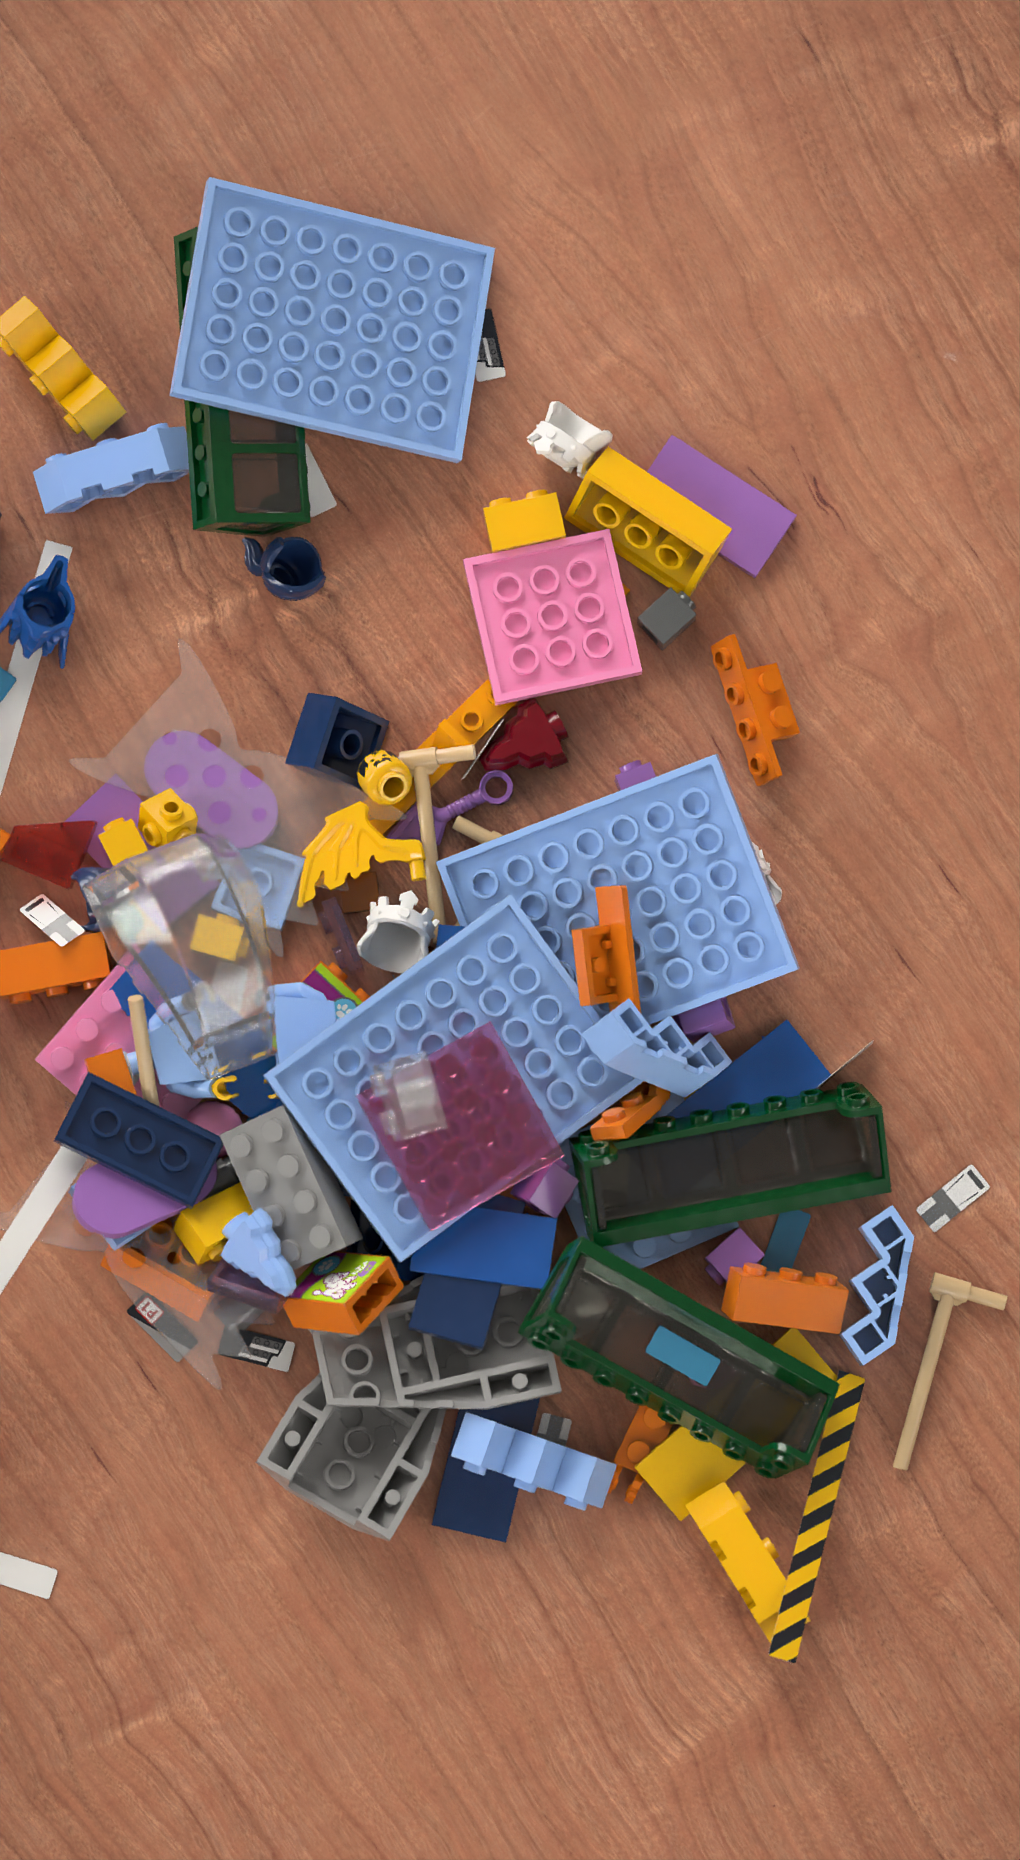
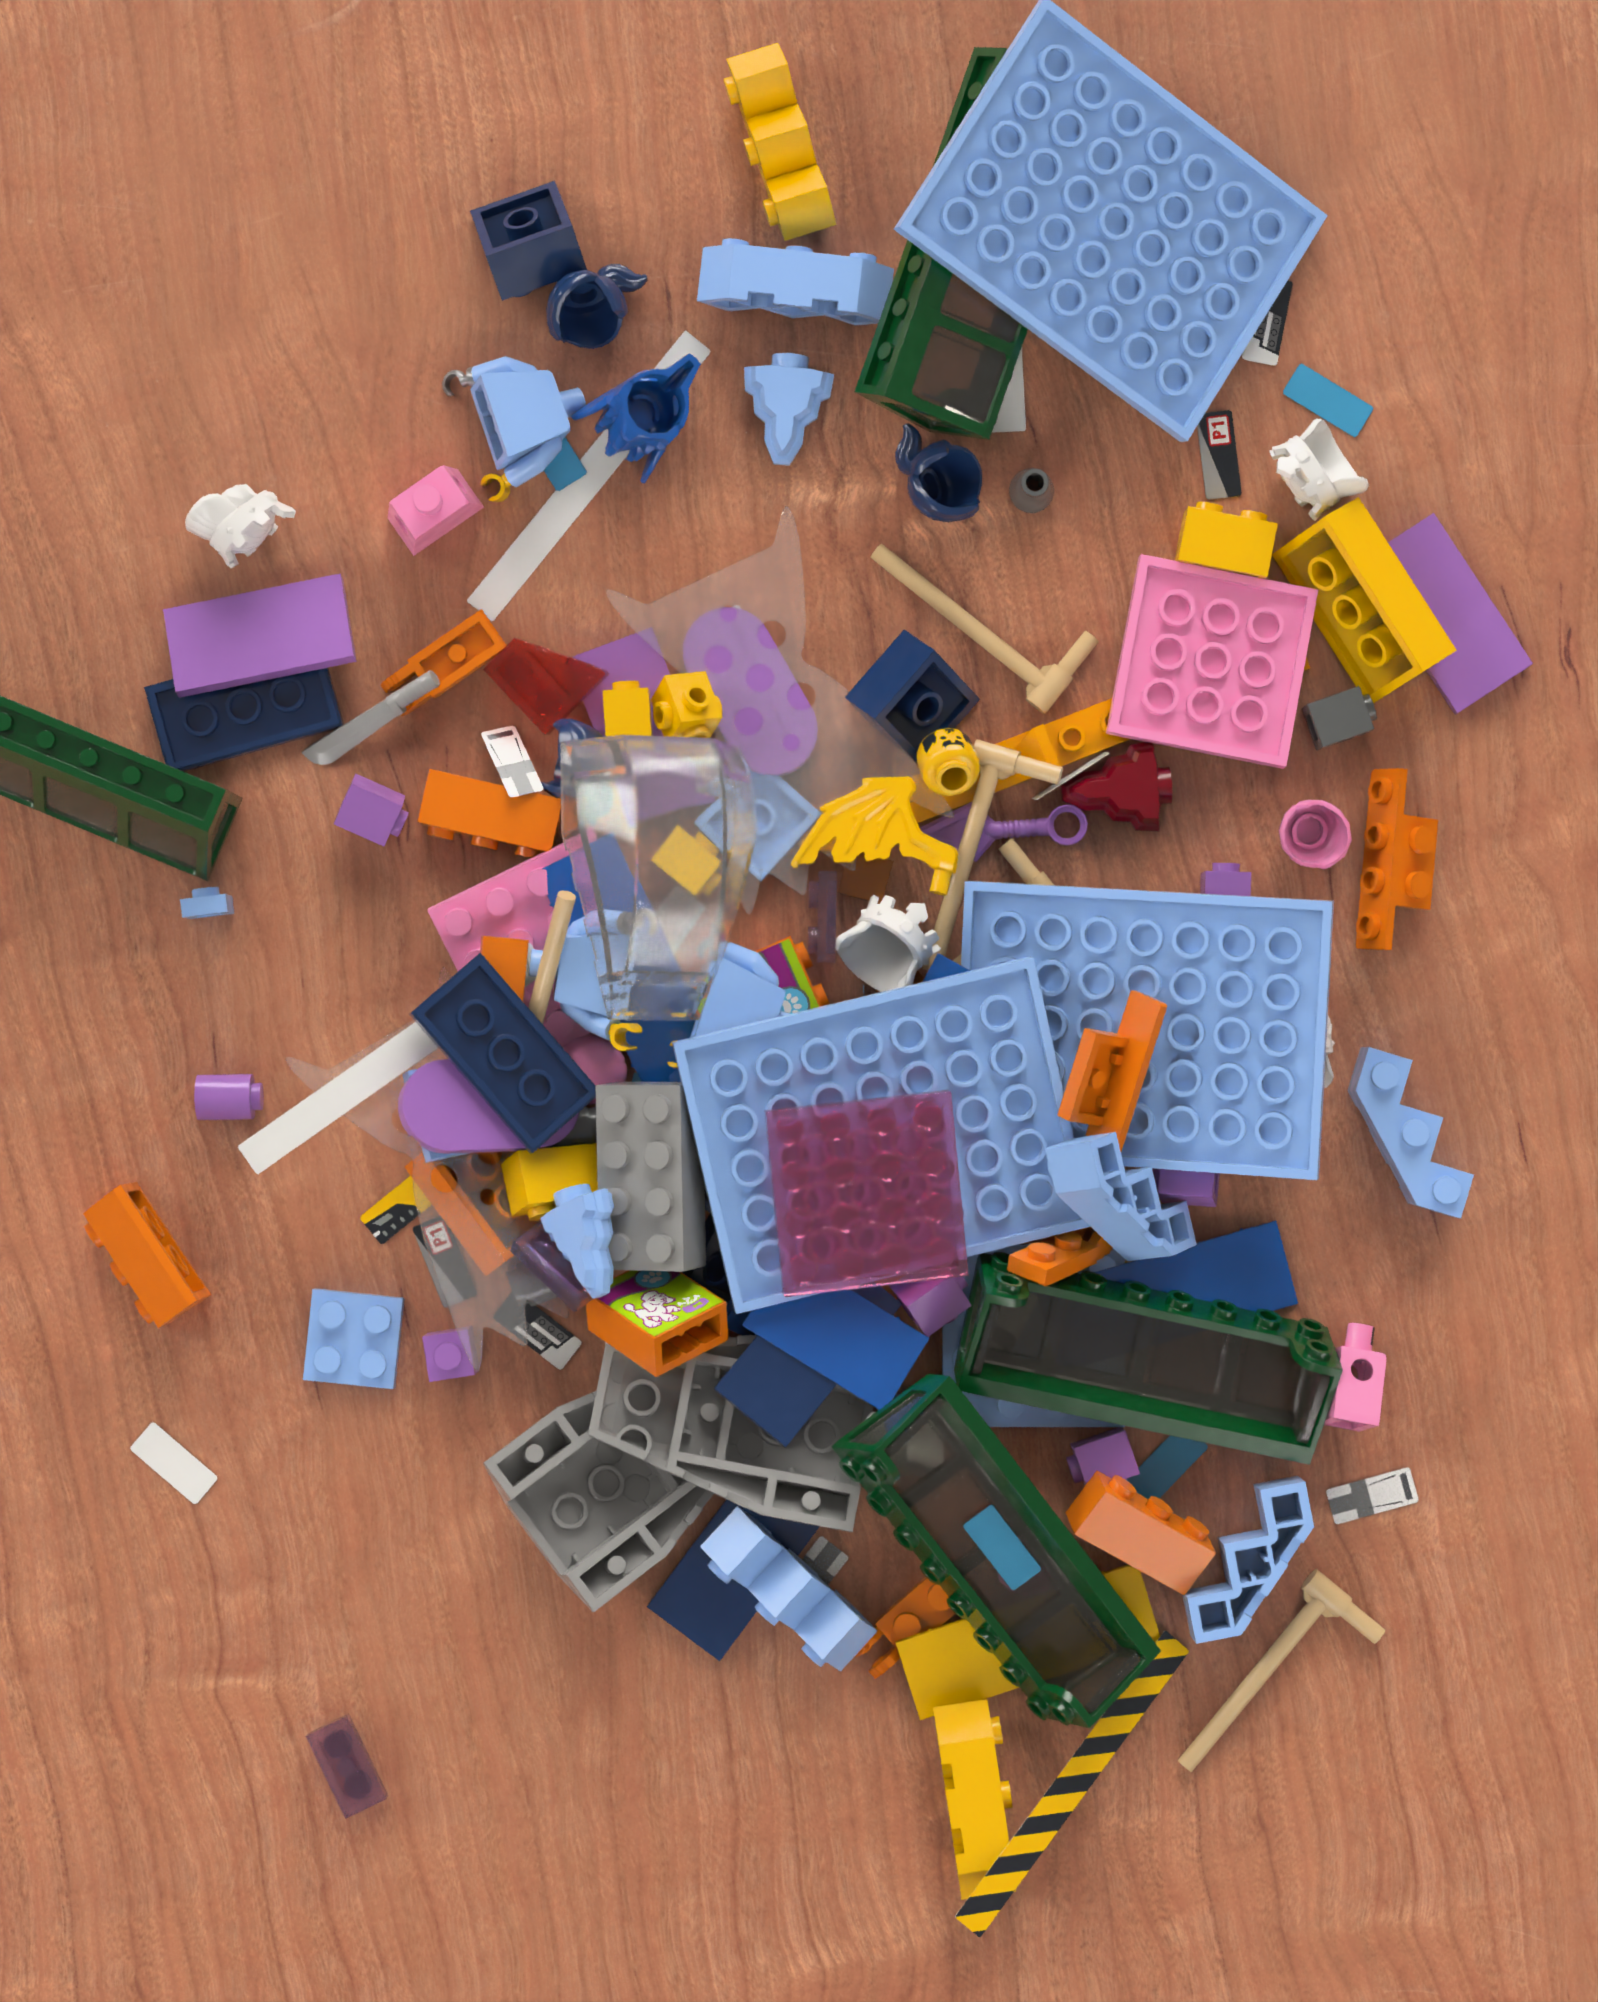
camera: 15 degrees right, 5 degrees up
(106, 1305) = (391, 1212): none -> sticker
(117, 1416) = (353, 1338): none -> light blue plate
(145, 559) = (787, 401): none -> light blue rock
(195, 1395) = (446, 1356): none -> medium lavender brick
(252, 1750) = (347, 1766): none -> plate
(360, 555) = (1028, 500): none -> dark grey cone
(408, 1097) = (823, 1142): clear brick -> none
(433, 688) = (1043, 684): none -> tan bar
(491, 461) = (1219, 455): none -> sticker
(556, 385) = (1328, 400): none -> dark azure sticker
(686, 712) = (1315, 834): none -> bright pink hair
(845, 1064) = (1320, 1299): sticker -> none
(855, 910) = (1405, 1134): none -> light blue brick
(903, 1126) = (1359, 1400): none -> bright pink torso

